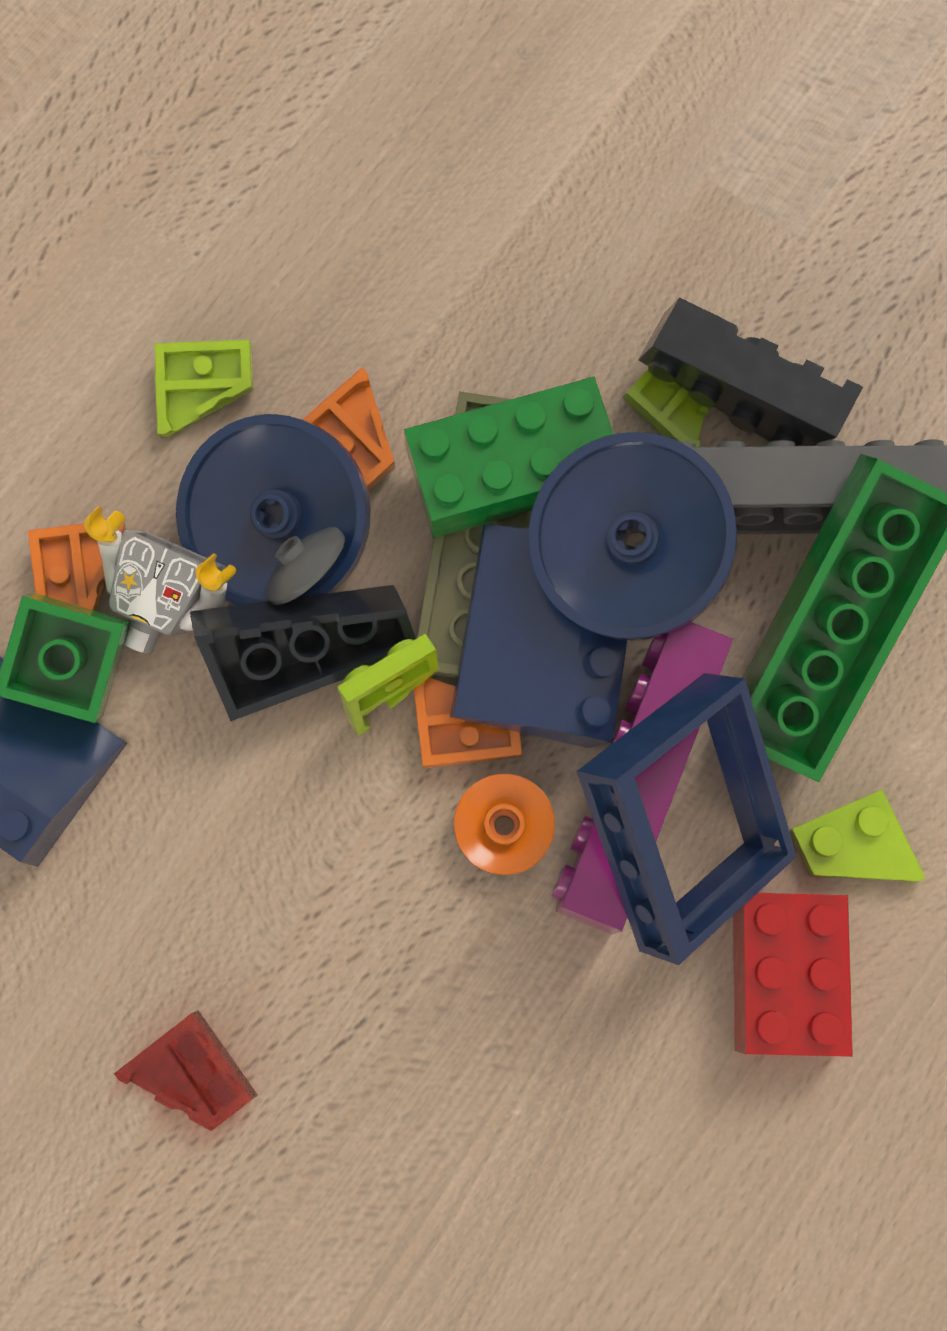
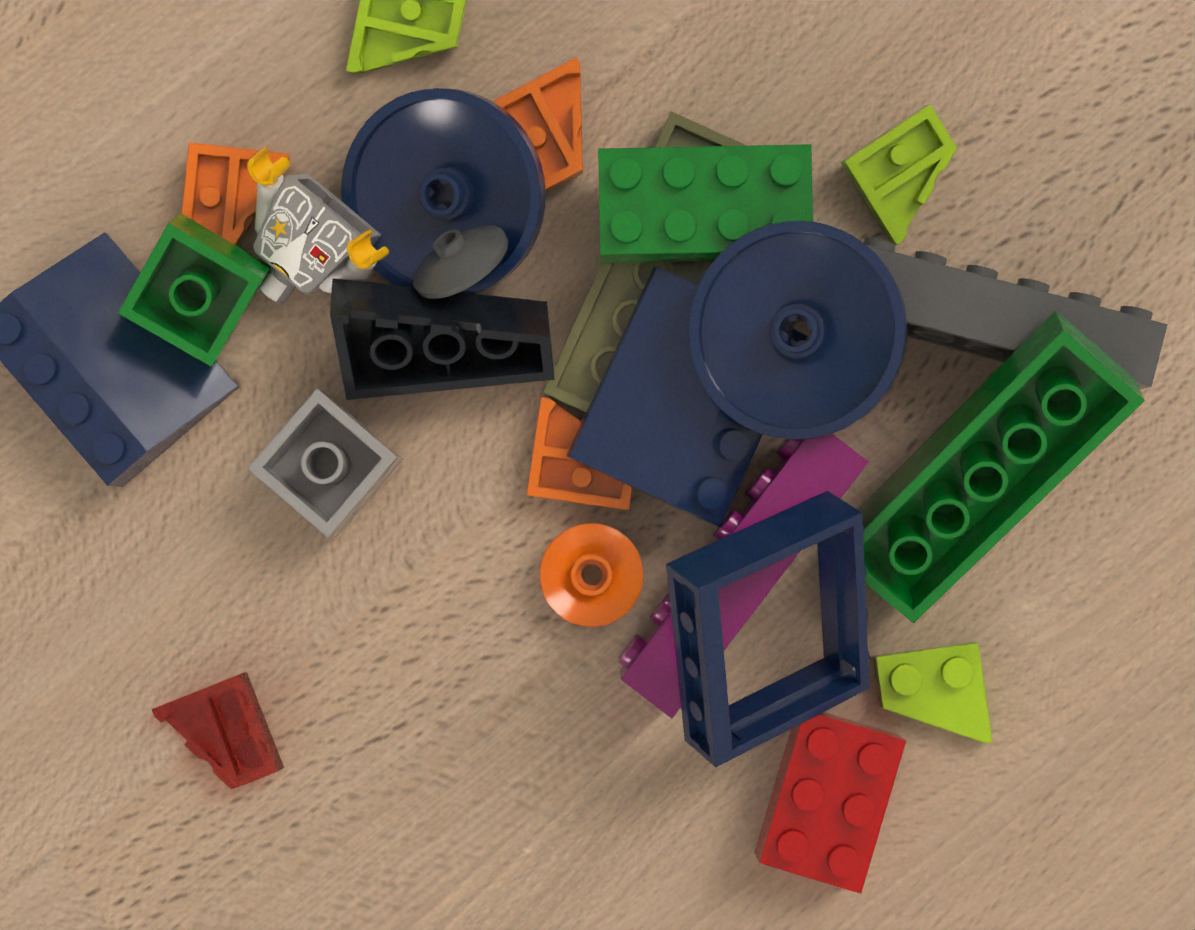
camera: 20 degrees right, 10 degrees up
(226, 785) = (325, 463): none -> light grey brick
(388, 680) = (491, 405): lime wing -> none
(746, 378) = (972, 185): black wedge -> none

